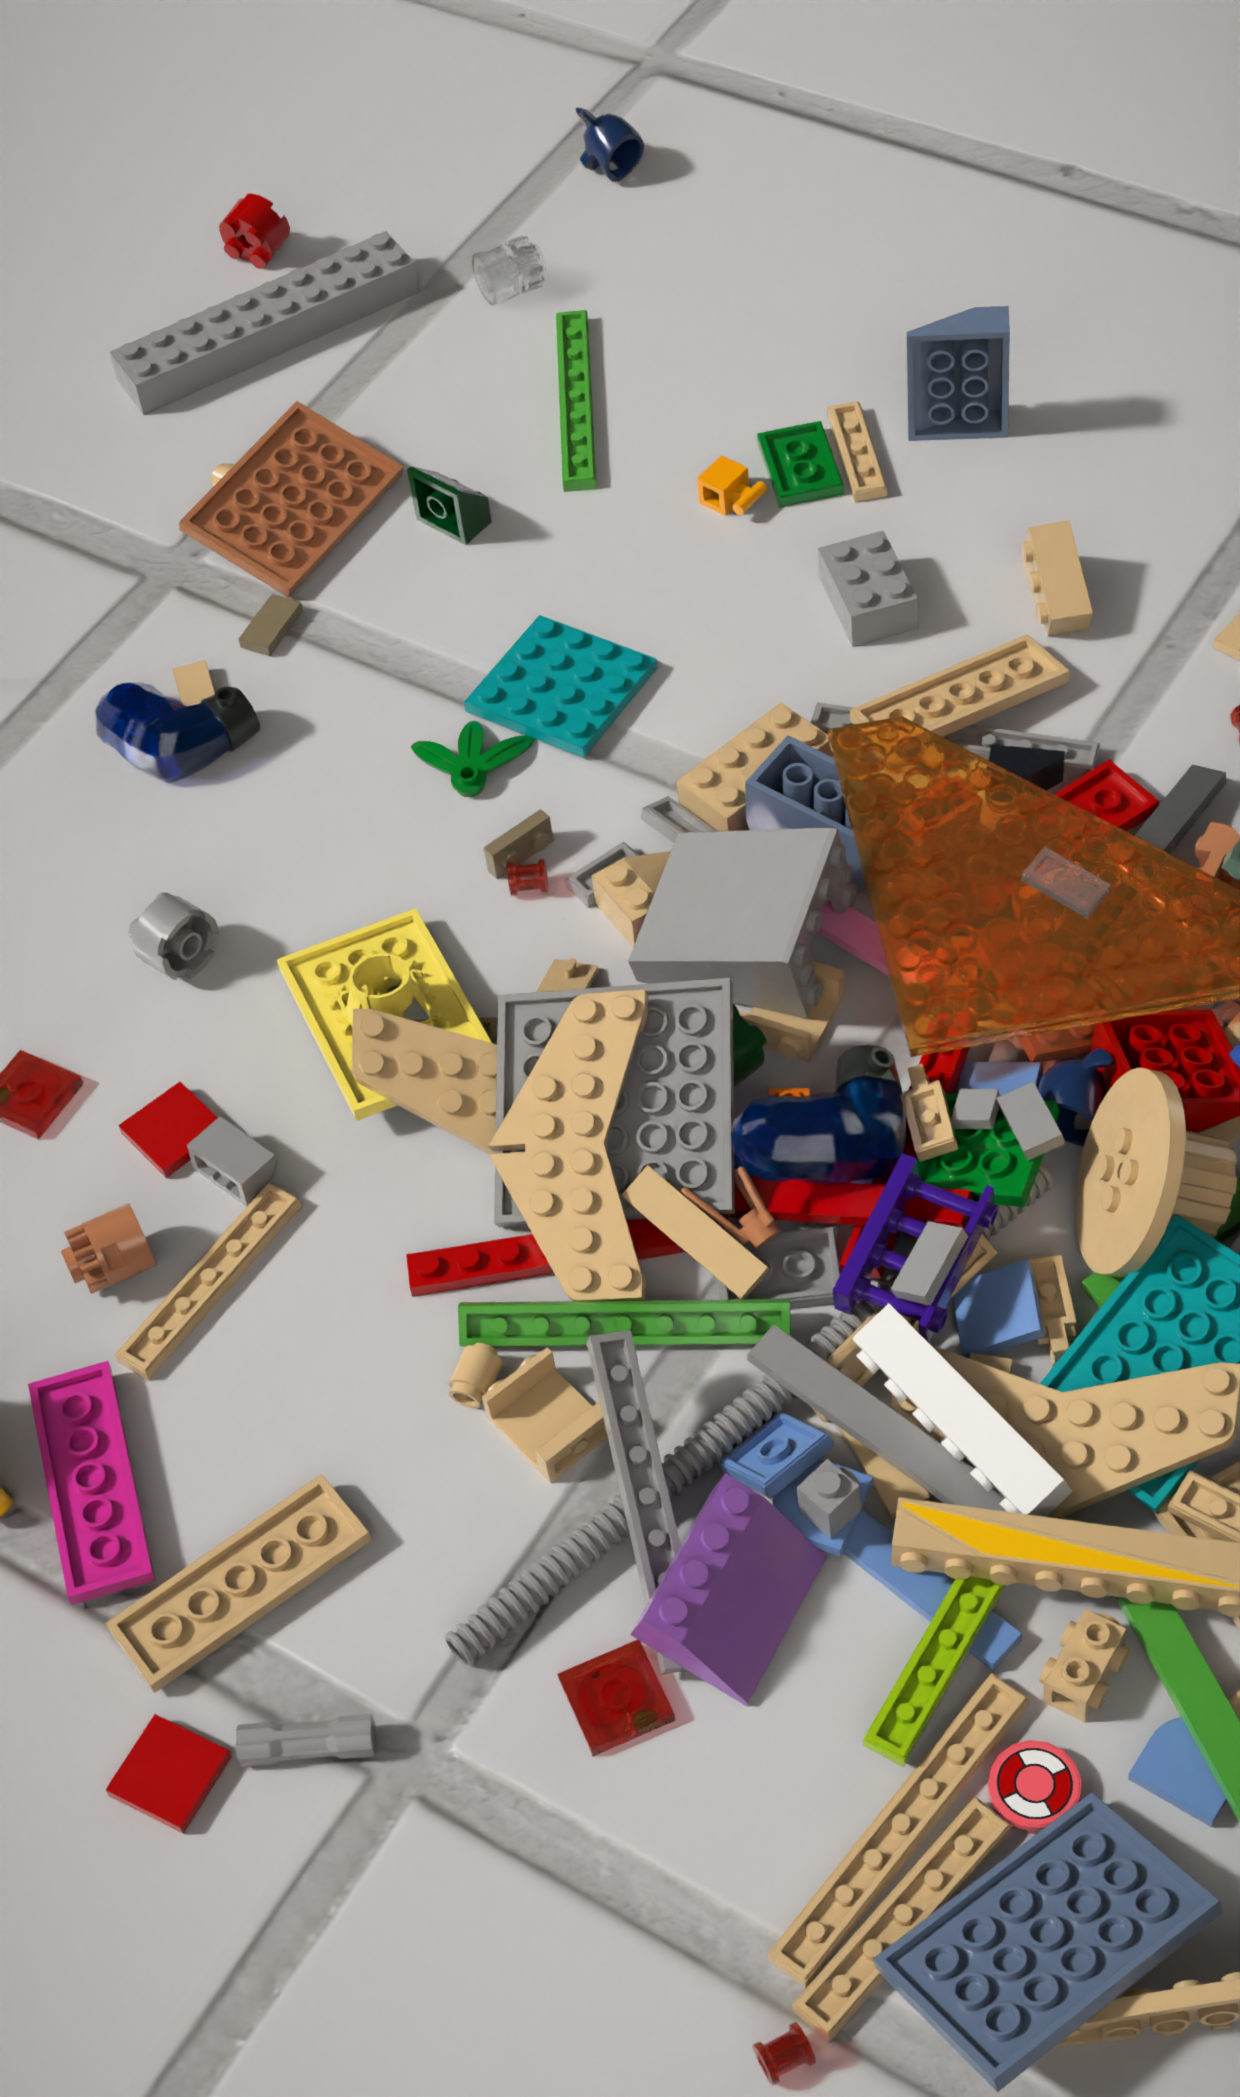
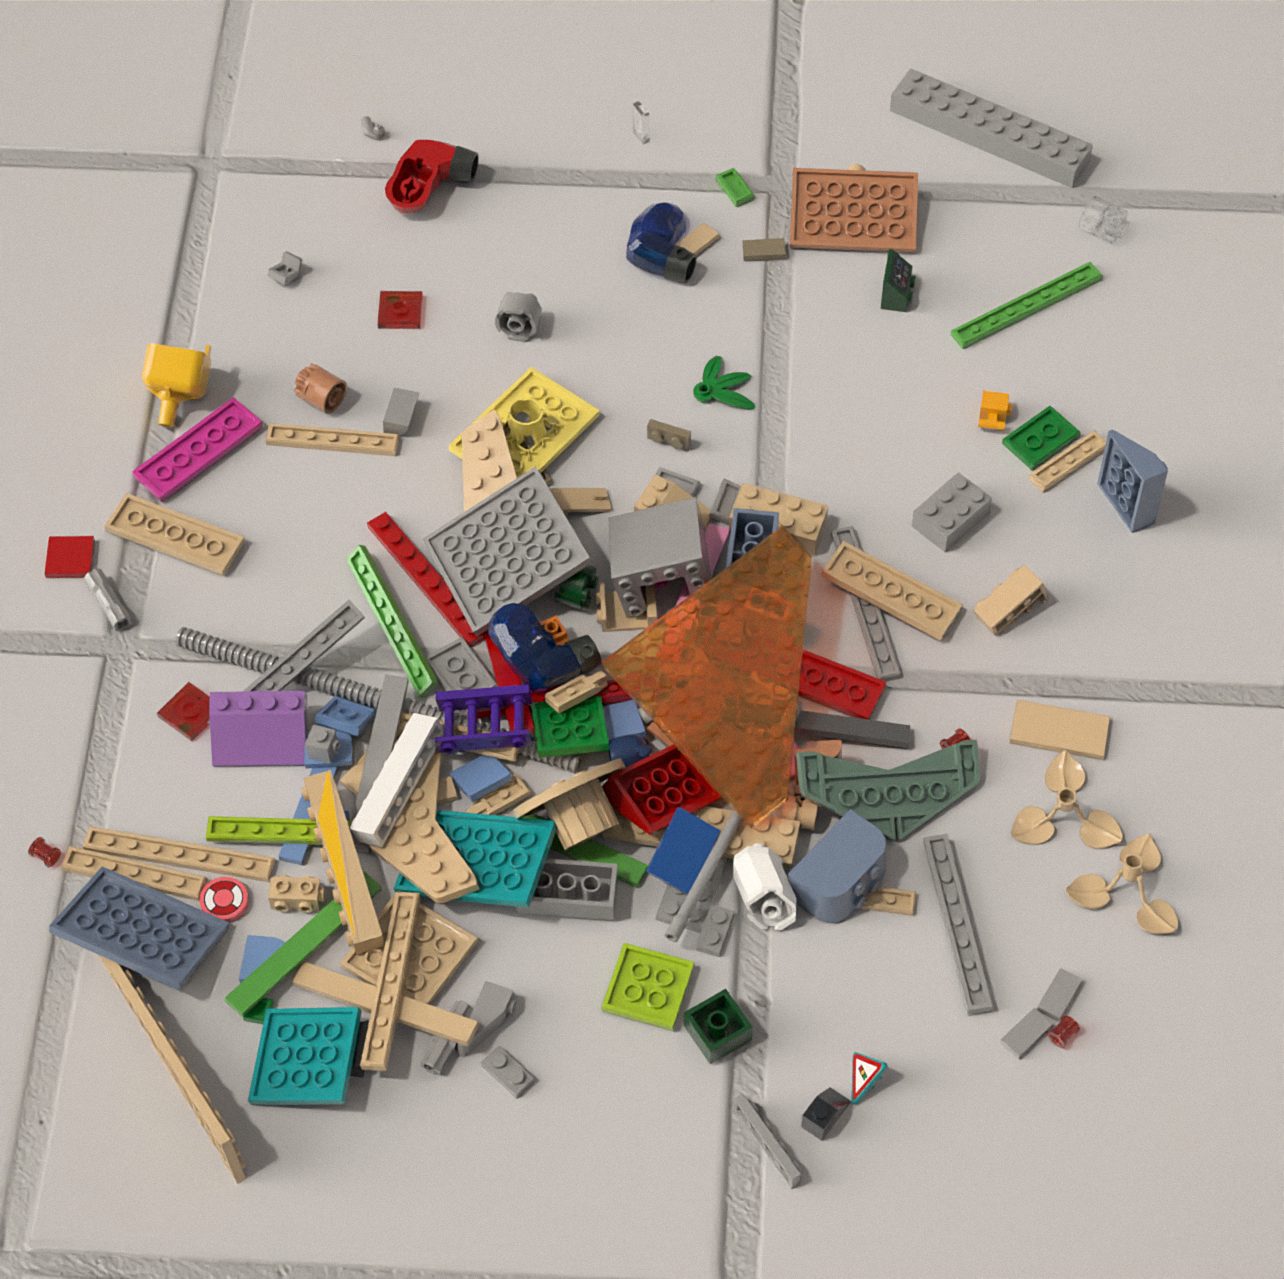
camera: 55 degrees right, 5 degrees up
(136, 616) = (735, 187): none -> bright green tile
(166, 1127) = (411, 376): red tile -> none
(253, 230) = (1056, 82): red brick -> none
(474, 1374) = (330, 572): tan brick -> none
(515, 872) = (649, 449): clear red bush -> none
(545, 1416) = (322, 603): tan panel -> none
(561, 685) = (797, 402): teal plate -> none
(564, 1126) = (456, 547): tan wing -> none
(610, 140) = (1251, 213): dark blue piece -> none
(695, 1233) = (452, 623): tan tile -> none
(757, 1224) = (472, 649): nougat plant -> none
(929, 1263) = (470, 725): light grey tile -> none
(975, 1109) = (589, 711): light grey tile -> none
(1030, 1120) = (587, 735): light grey tile -> none
(1035, 765) = (851, 643): black slope -> none
(1066, 882) = (741, 682): clear tile -> none

